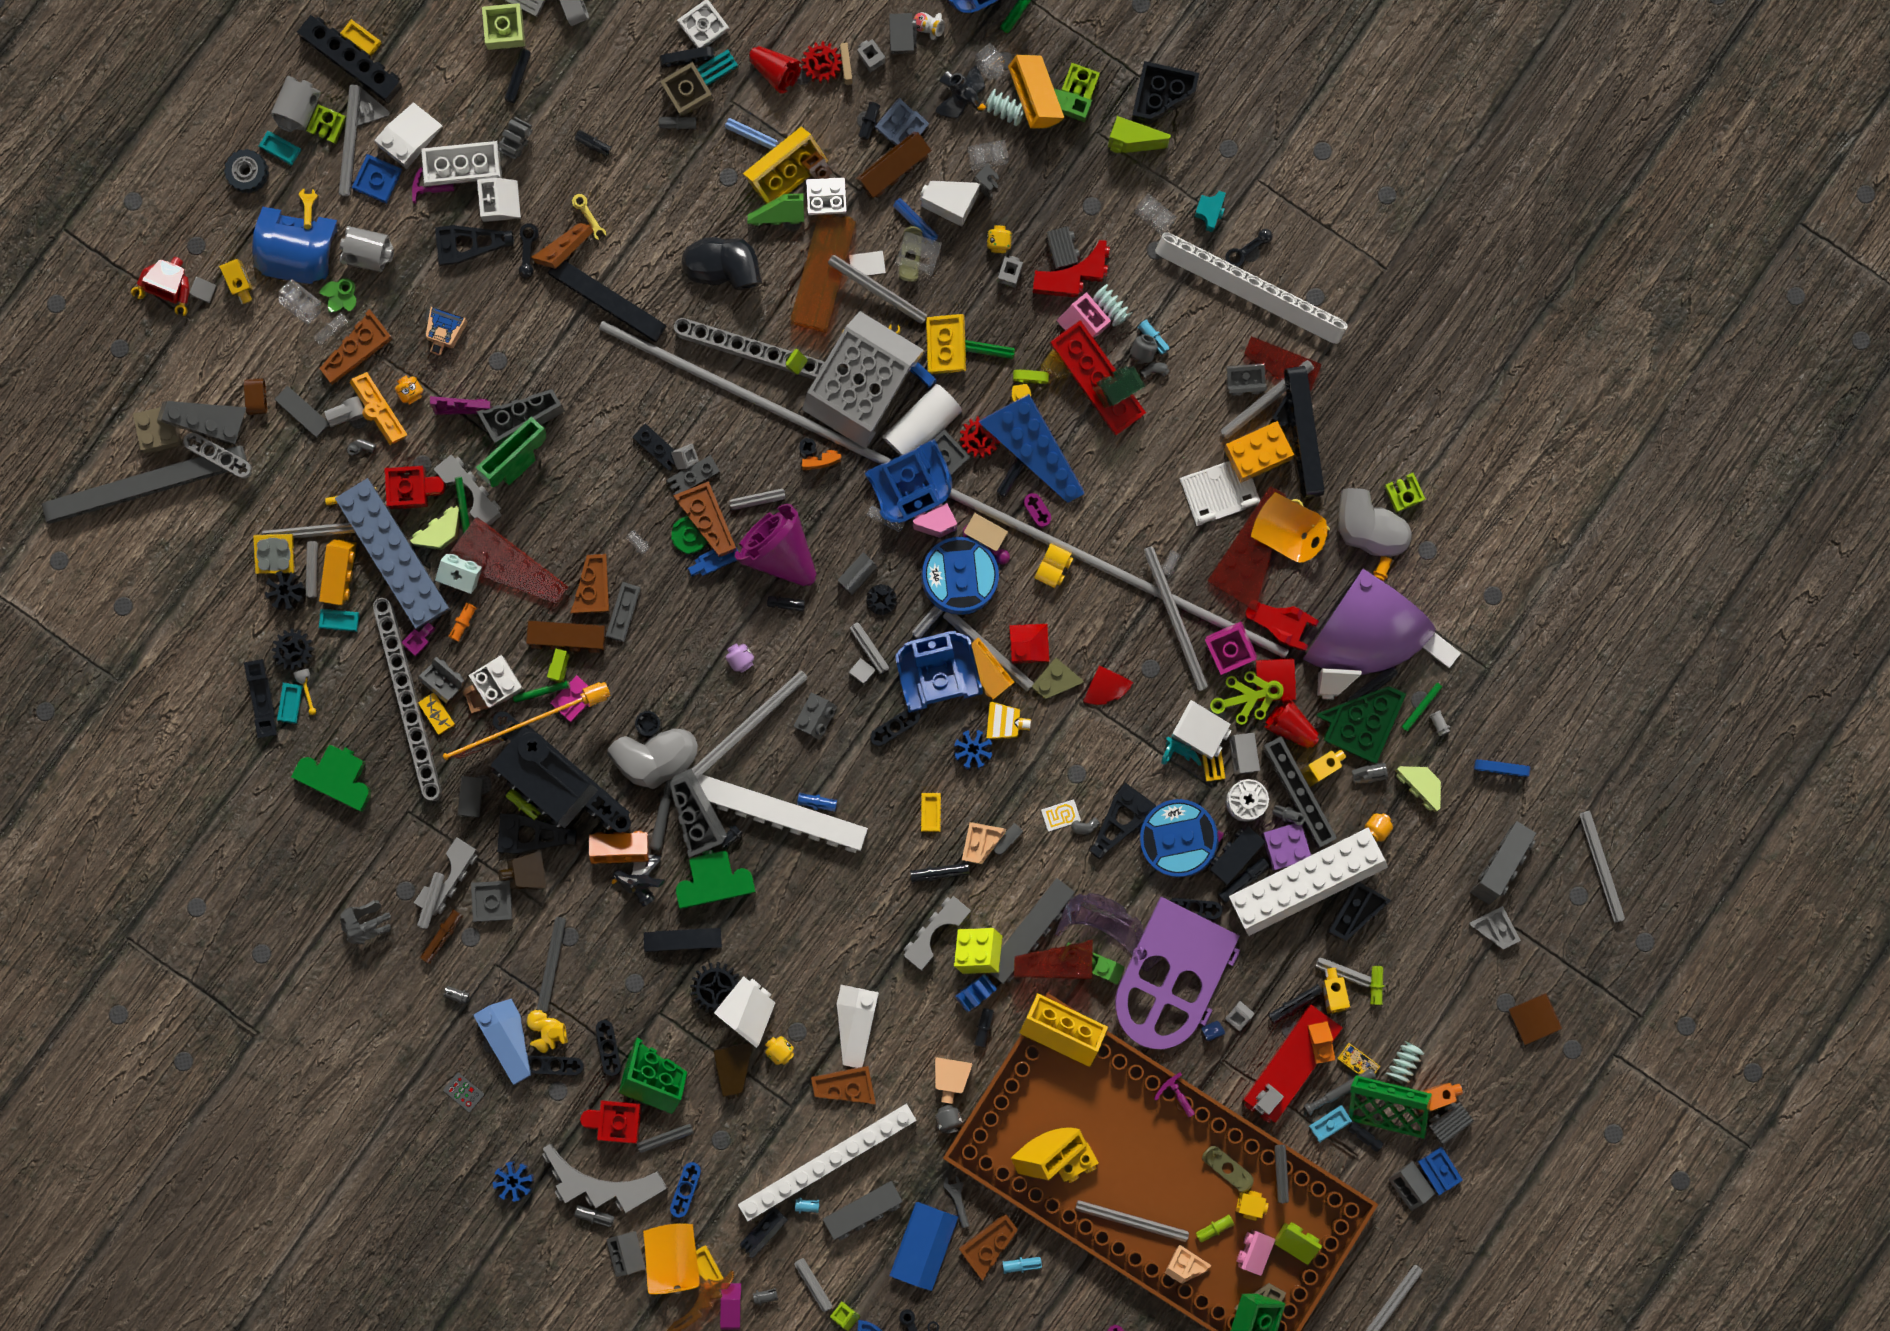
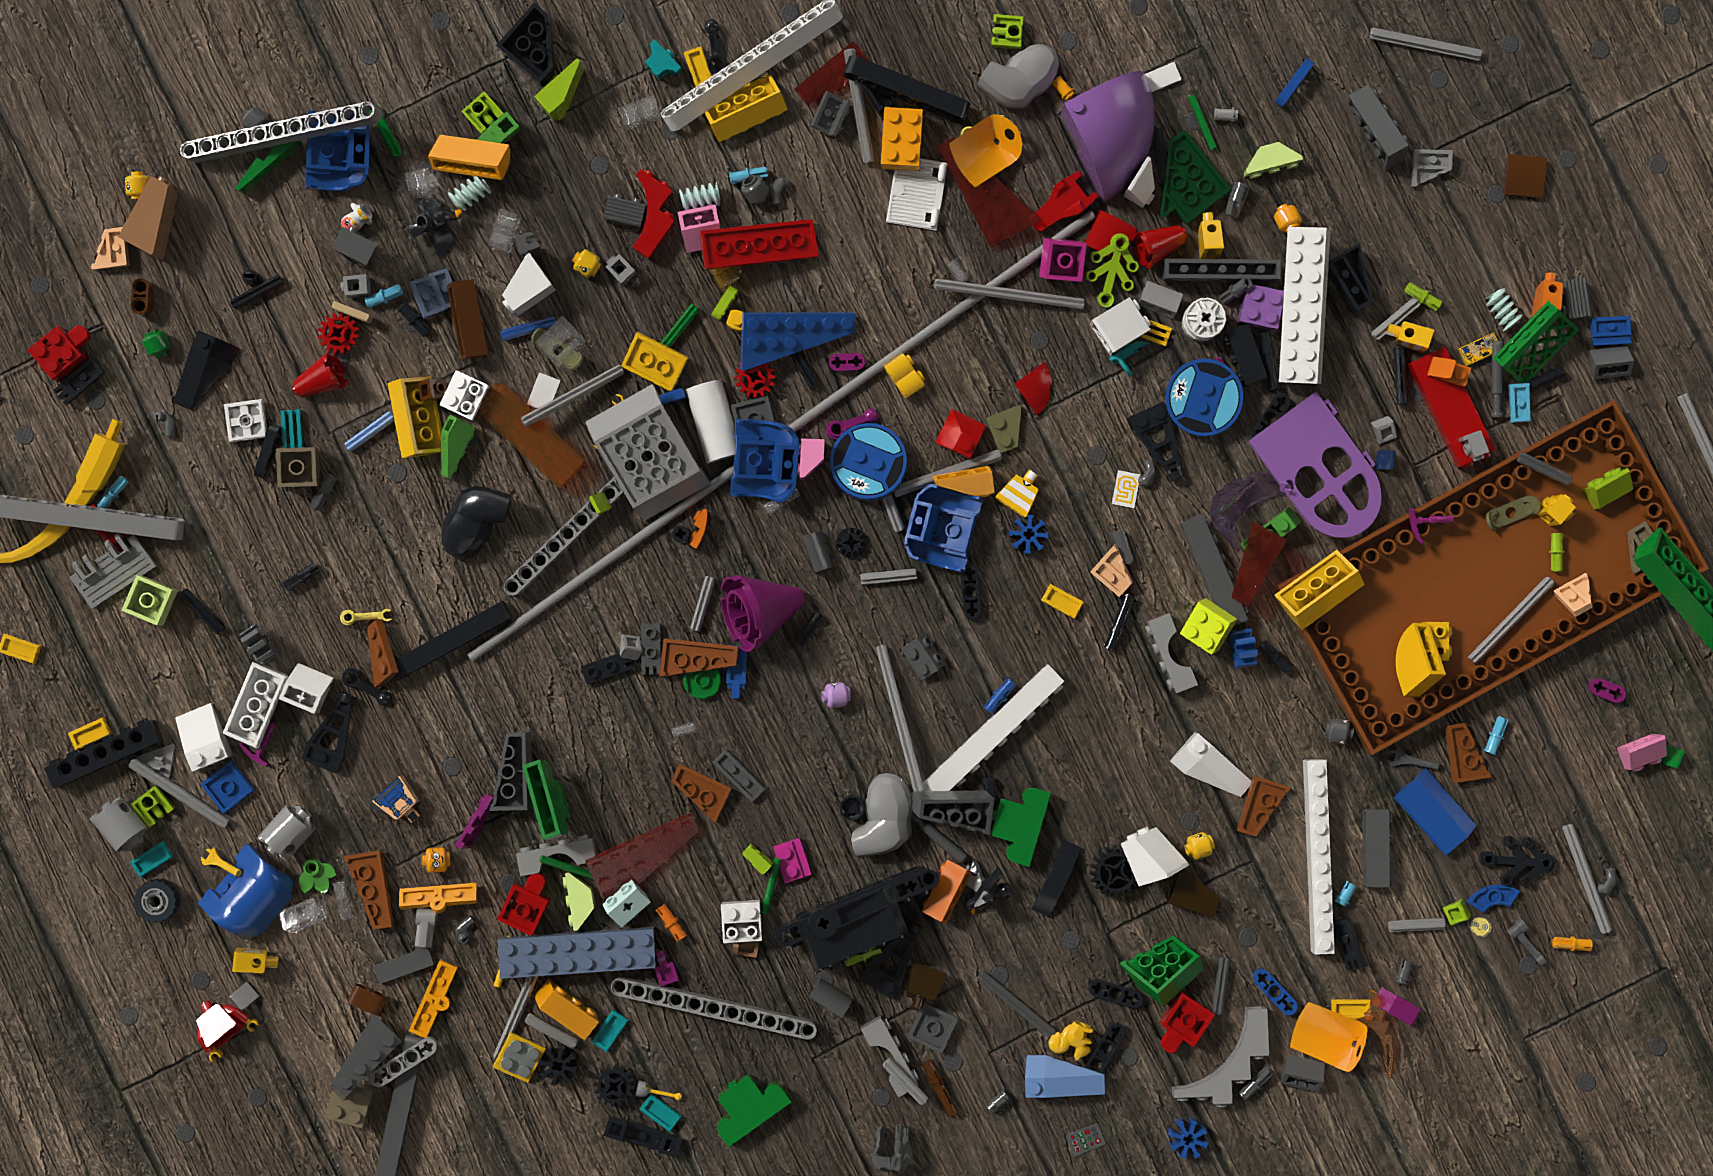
camera: 60 degrees left, 5 degrees up
(286, 453) = (434, 999): none -> light orange hinge
(436, 713) = (740, 988): yellow tile -> none
(442, 680) = (713, 968): dark grey bracket -> none
(566, 636) = (733, 837): reddish brown brick -> none
(591, 695) = (803, 846): light orange flag -> none
(862, 671) = (905, 594): light grey slope -> none
(875, 83) = (383, 296): none -> medium azure axle
(951, 1077) = (1303, 708): light nougat torso -> none
(985, 532) = (842, 418): tan panel -> none
(1118, 387) = (779, 230): clear green brick -> none
(1210, 303) = (746, 108): none -> yellow slope
(1224, 242) = (697, 65): none -> yellow tile
(1255, 1252) = (1596, 528): bright pink slope -> none

